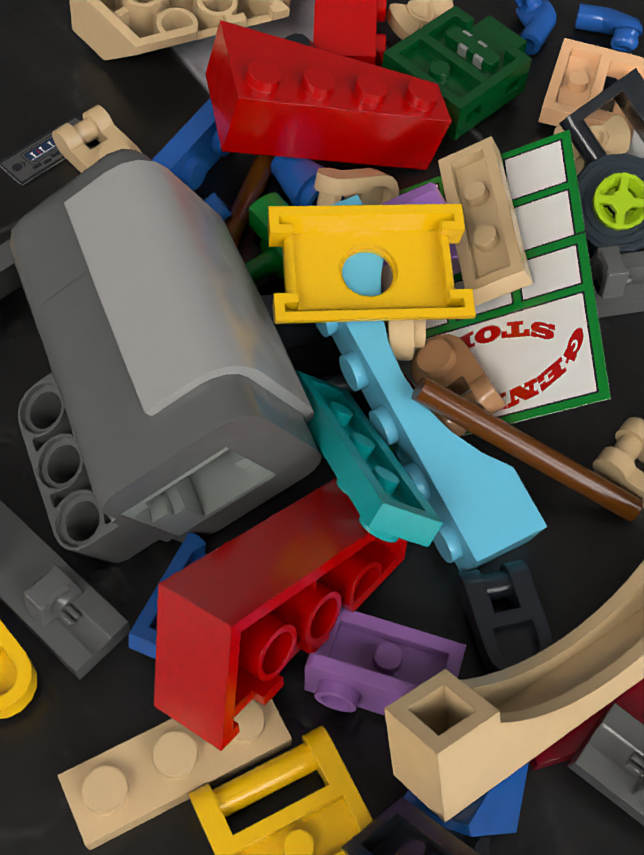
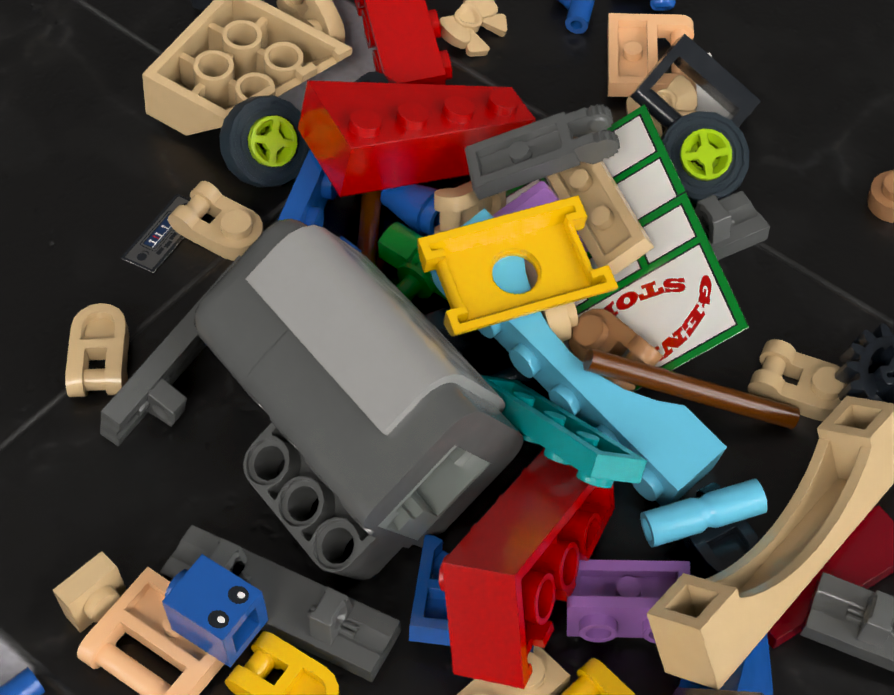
camera: 10 degrees left, 5 degrees down
(185, 83) = (281, 139): none -> black wheel
(443, 149) = (541, 150): none -> dark grey hinge
(473, 65) = (533, 57): dark green piece -> none
(507, 594) = (697, 514): none -> medium azure piece

